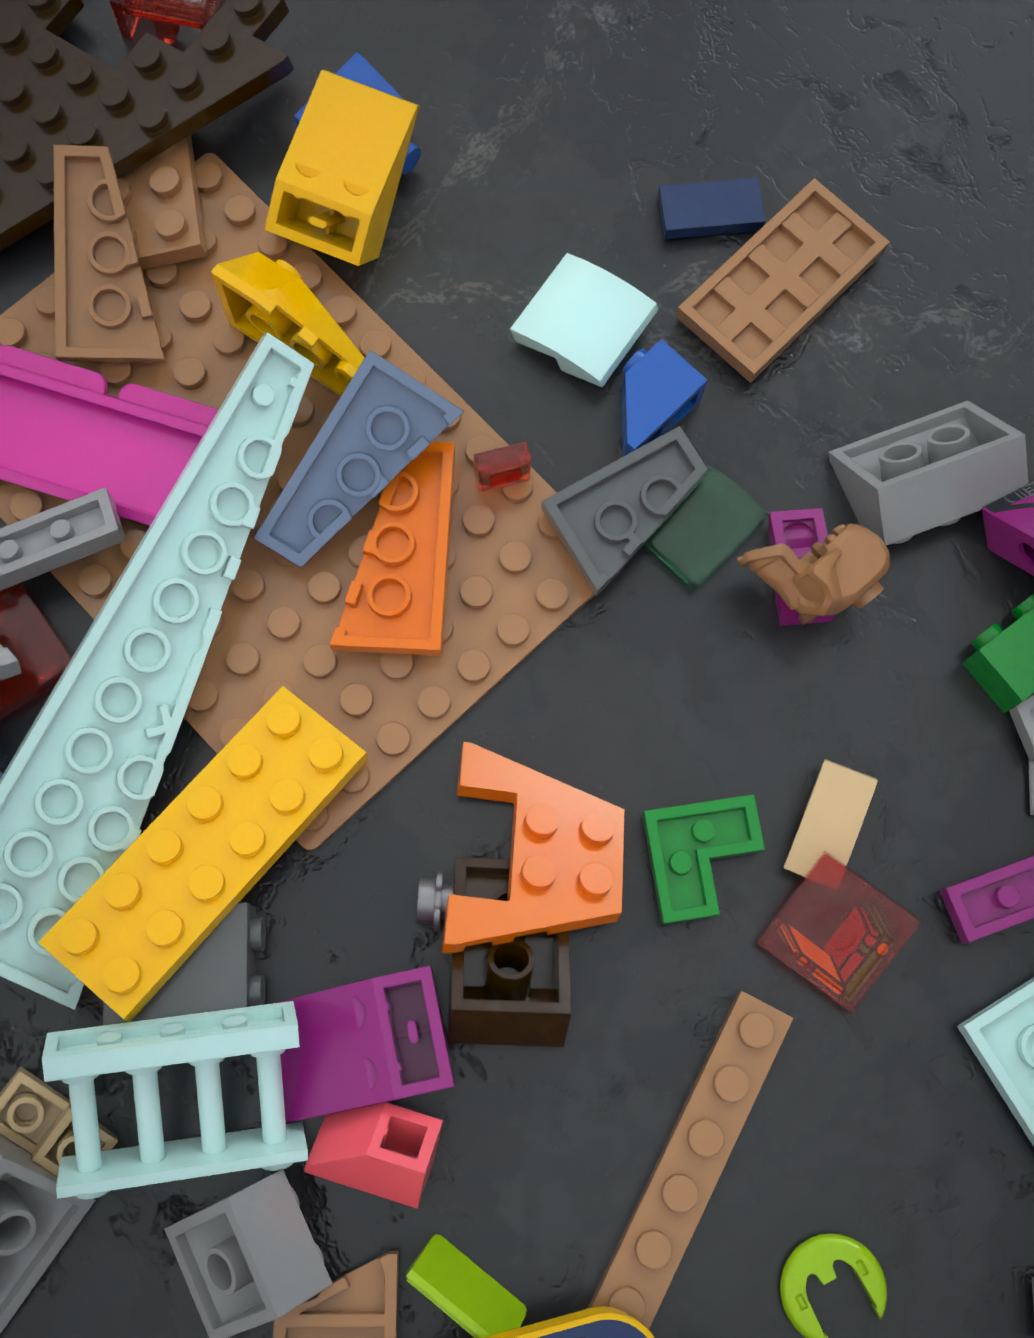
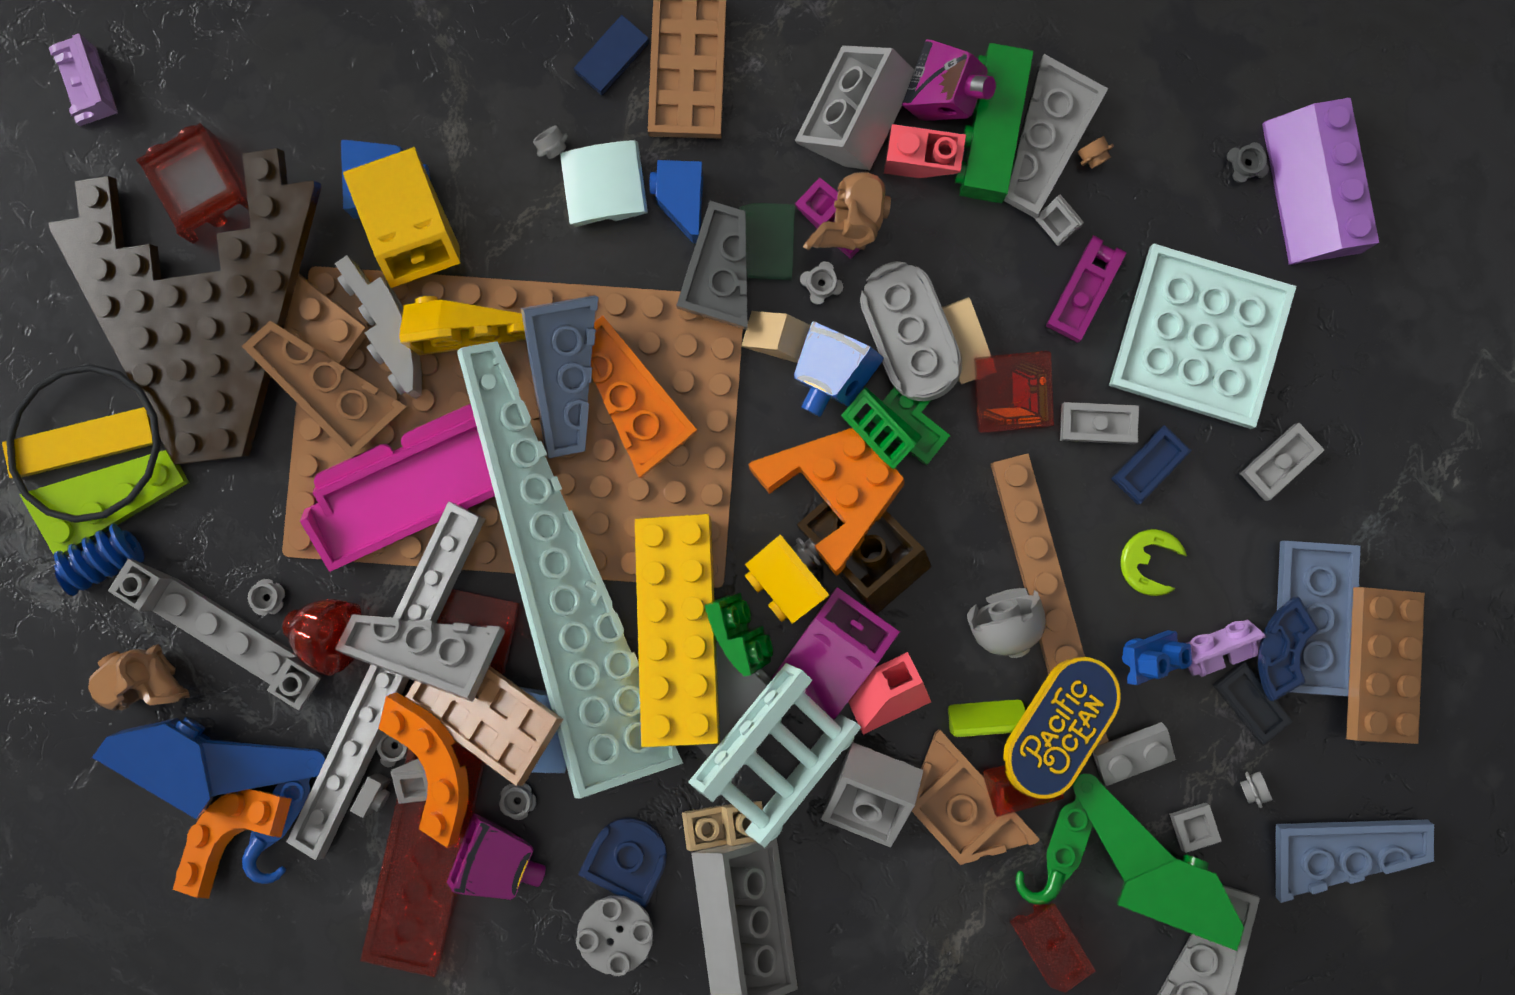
camera: 30 degrees left, 10 degrees up
(233, 235) = (385, 310): none -> light grey slope
(264, 915) = (744, 647): none -> green slope
(381, 905) = (785, 580): none -> yellow slope
(502, 466) = (639, 305): clear red tile -> none
(567, 235) = (550, 142): none -> light grey plate
(595, 1200) = (1009, 623): none -> light grey cylinder
(628, 641) = (776, 335): none -> tan slope
(654, 719) = (833, 368): none -> torso
(668, 848) = (871, 437): none -> green slope
(735, 610) = (821, 272): none -> light grey plate
(777, 759) = (911, 331): none -> light grey tile
(909, 1059) = (1099, 423): none -> light grey plate
(929, 1166) = (1151, 464): none -> dark blue tile
(961, 577) = (923, 152): none -> coral slope

